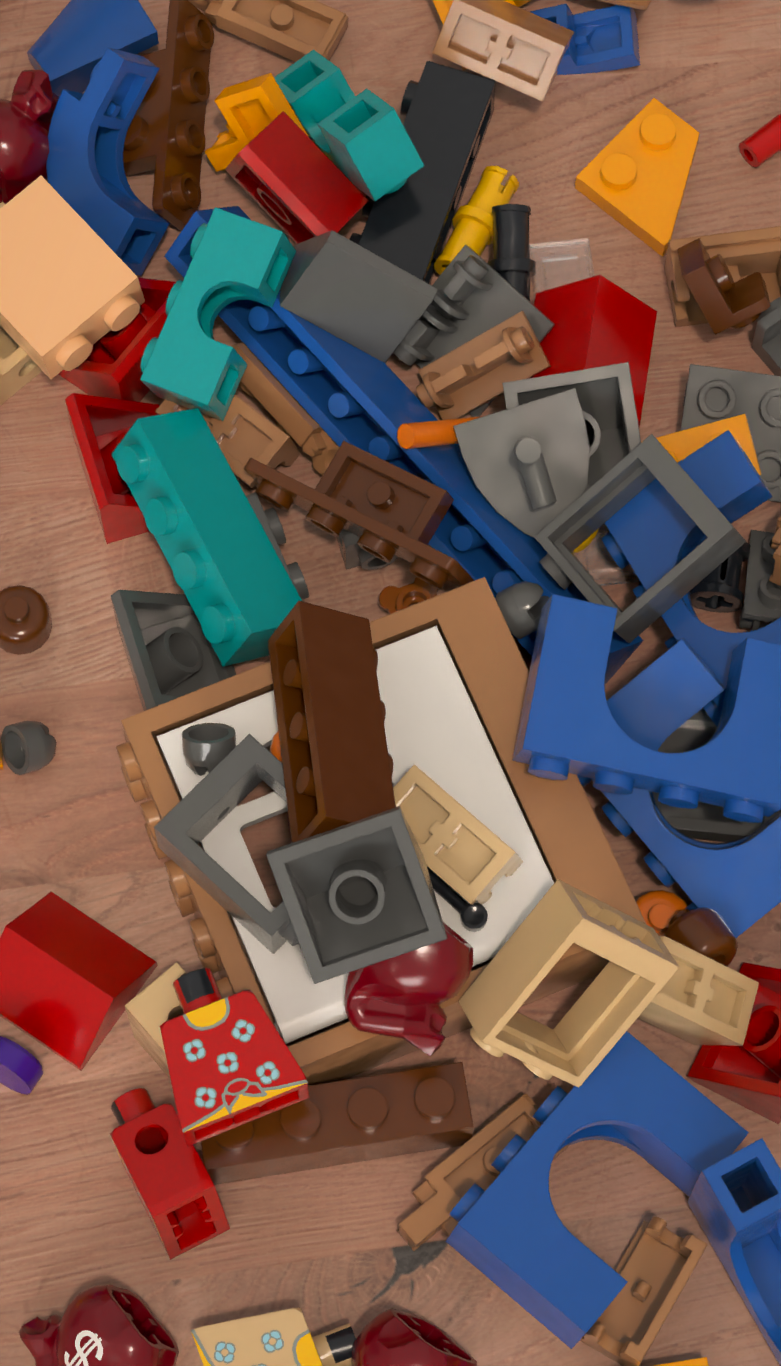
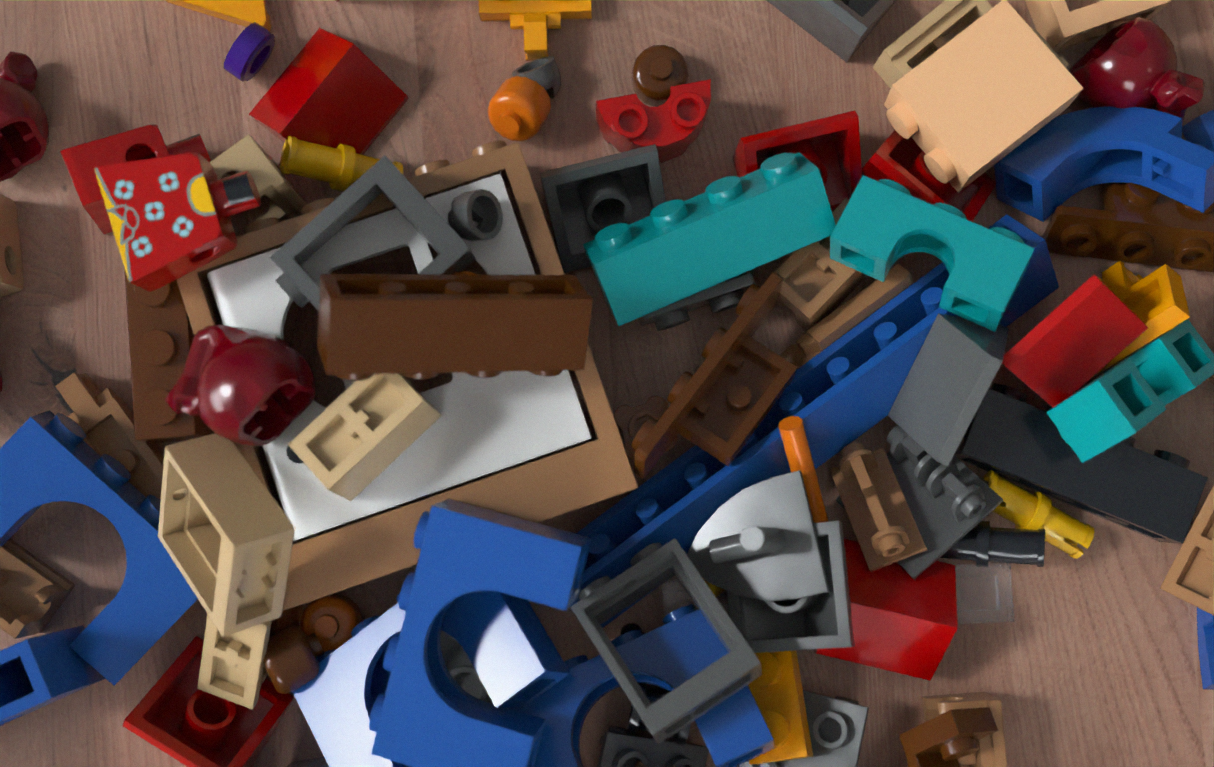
camera: 90 degrees right, 15 degrees up
(66, 759) = (519, 108): none -> orange piece
(84, 601) = (670, 126): none -> red cylinder
(144, 937) = (333, 165): none -> yellow pin
(358, 894) = (267, 334): dark grey slope -> none
(522, 607) = (612, 522): dark grey hinge -> none
(643, 174) = (1083, 682): light orange wing -> none

